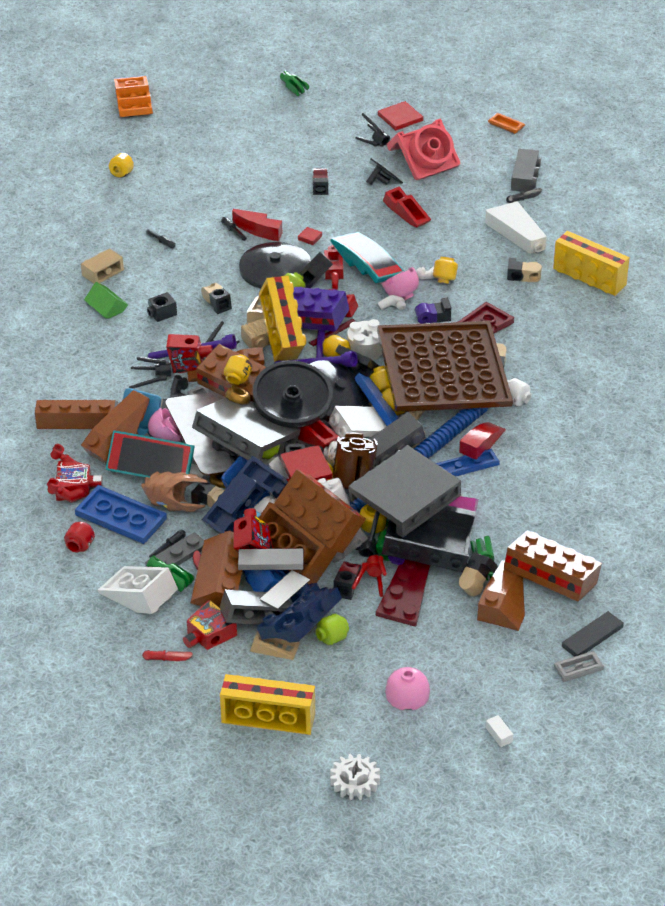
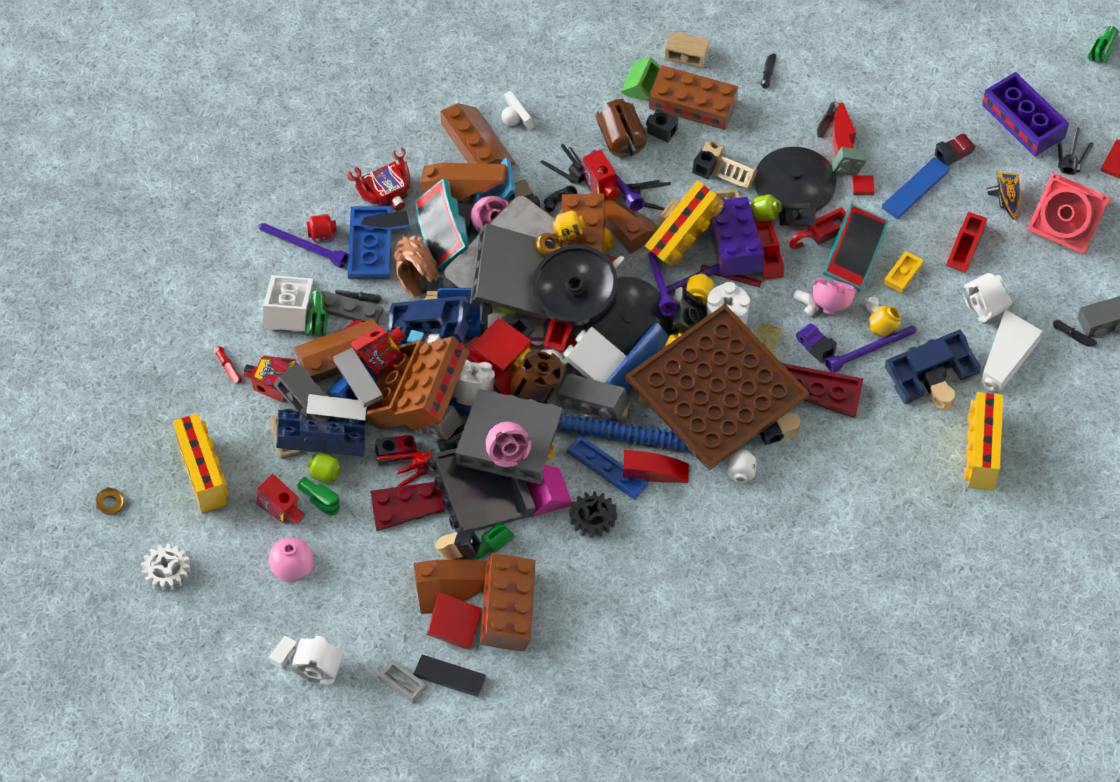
camera: 60 degrees right, 15 degrees up
(71, 377) = (516, 112): none -> white tile
(111, 492) = (384, 221): none -> black sticker
(119, 539) = (336, 257): none -> dark purple piece
(149, 324) = (621, 128): none -> reddish brown cylinder
(152, 278) = (693, 97): none -> dark orange brick
(250, 785) = (109, 493): none -> pearl gold piece
(252, 283) = (748, 179): none -> tan slope
(287, 228) = (849, 161): none -> sand green piece
(322, 135) = (1025, 114): none -> dark purple brick
(335, 213) = (915, 188): none -> blue tile
(345, 669) = (279, 500): none -> red torso
(358, 644) = (320, 496): none -> green arm
(406, 247) = (903, 272): none -> yellow plate
(425, 480) = (507, 444): none -> bright pink cylinder
(459, 310) = (835, 363): none -> dark purple piece
(467, 213) = (987, 296): none -> white brick
(496, 264) = (947, 351): none -> dark blue bracket
(500, 488) = (599, 520): none -> black gear
(530, 703) = (317, 660): none -> white brick
(544, 608) = (454, 621): none -> red tile

